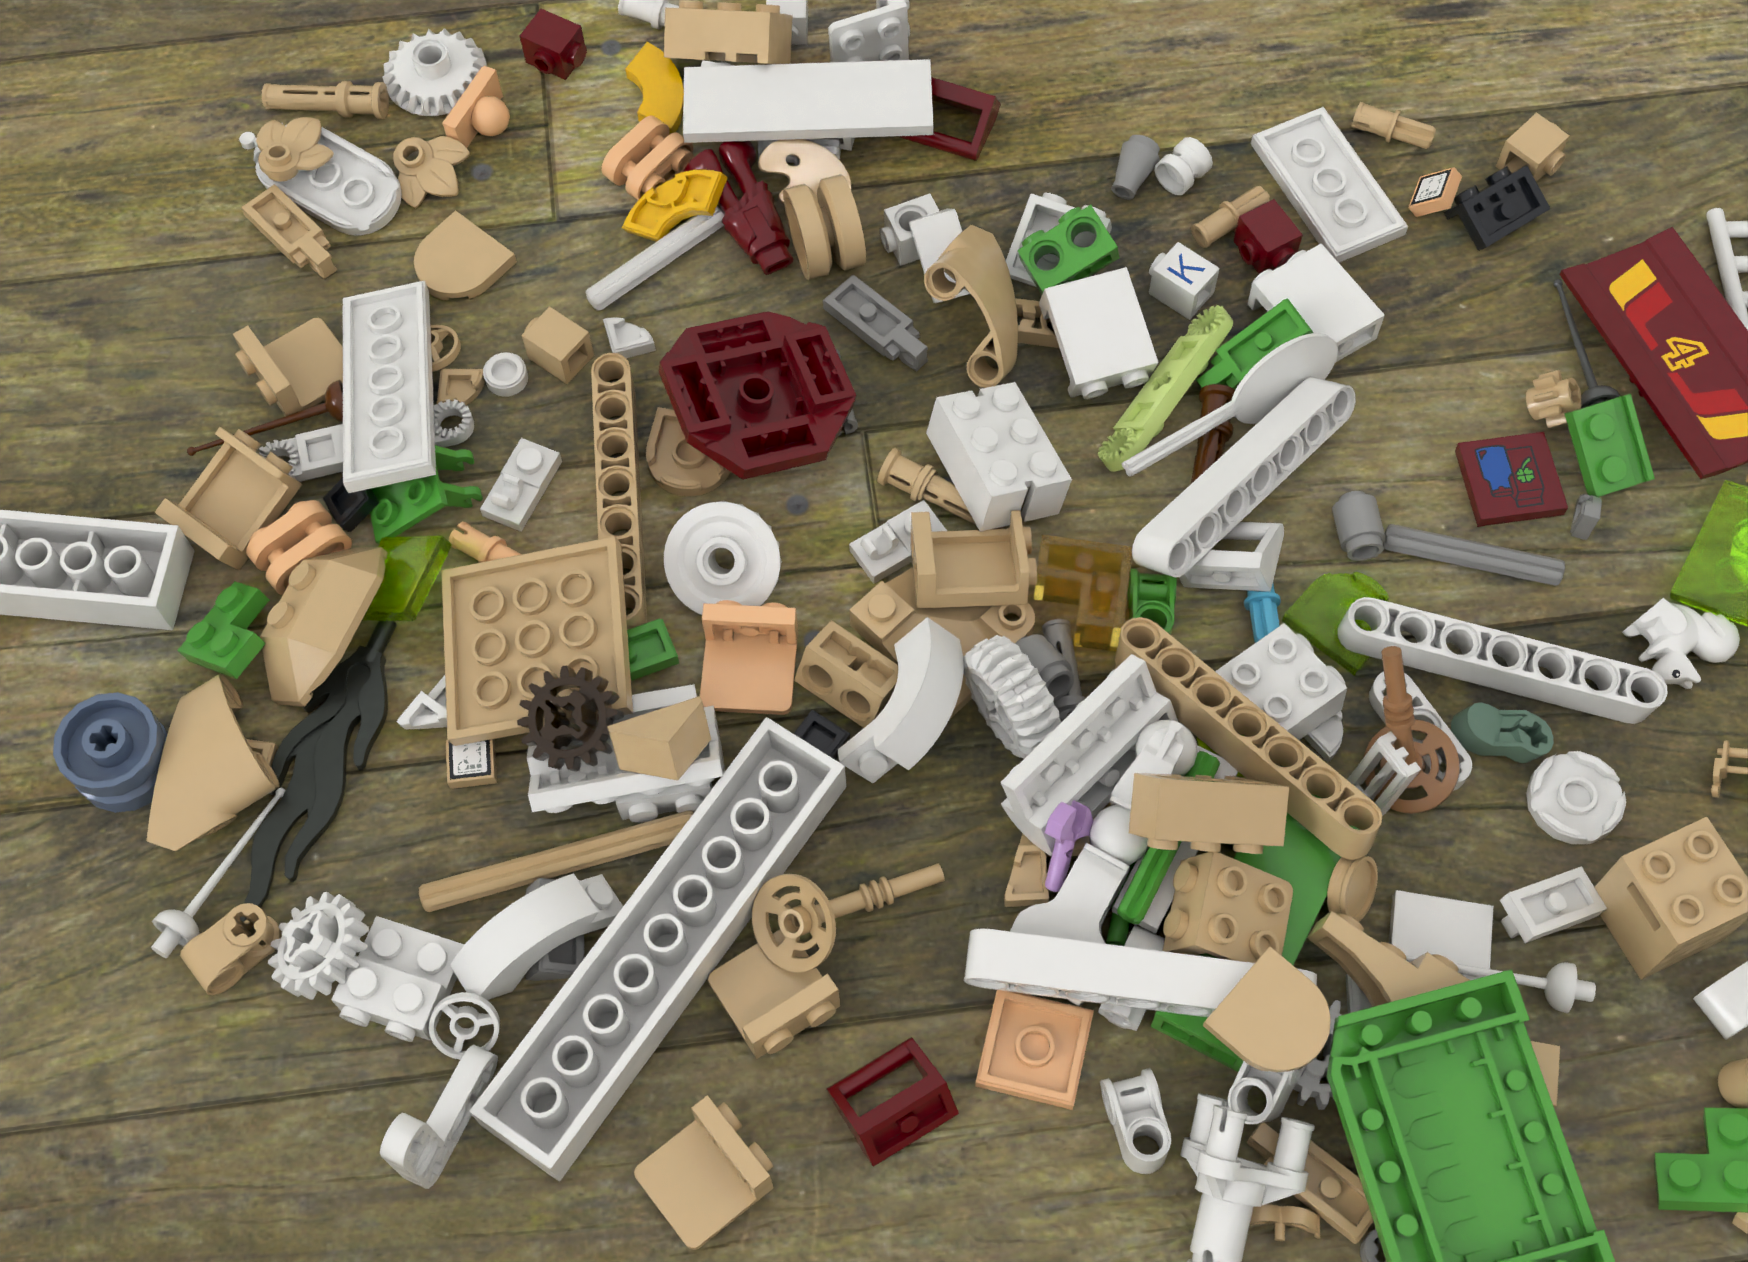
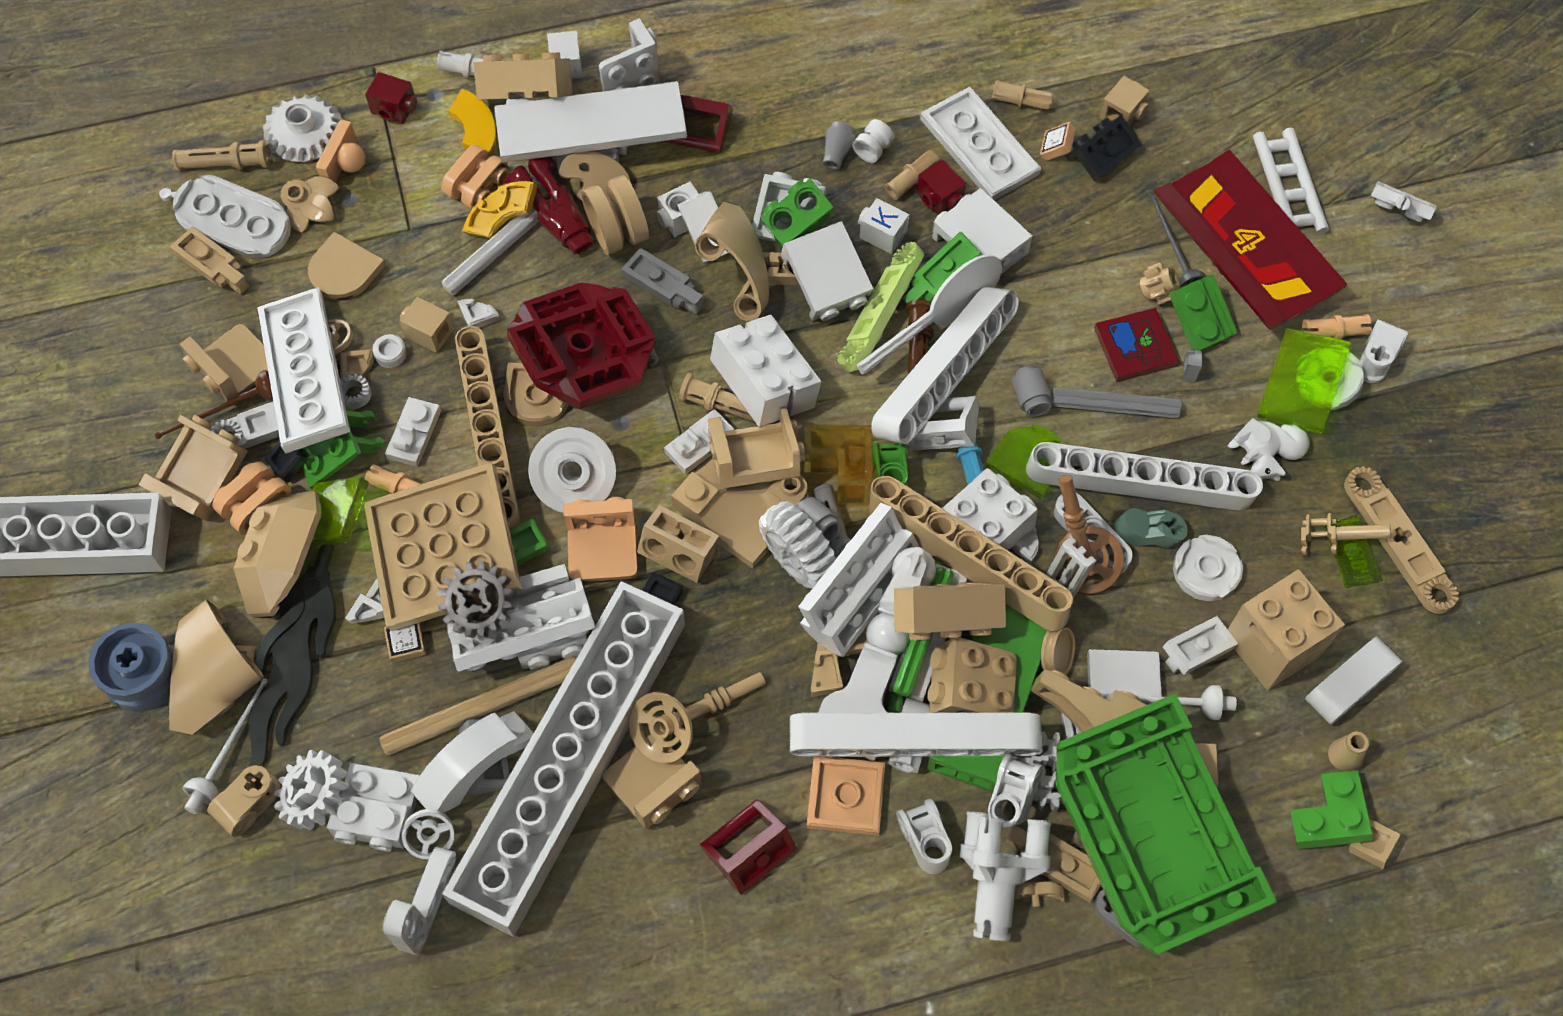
camera: 10 degrees left, 0 degrees up
(221, 637) = (202, 572): bright green plate -> none
(291, 148) = (202, 197): tan plate -> none
(662, 740) = (547, 607): tan slope -> none
(705, 1175) = (620, 916): tan bracket -> none
(919, 707) = (731, 562): white arch -> none
(1066, 826) = (849, 632): lavender bar -> none
(1273, 1016) = (1012, 748): tan tile -> none

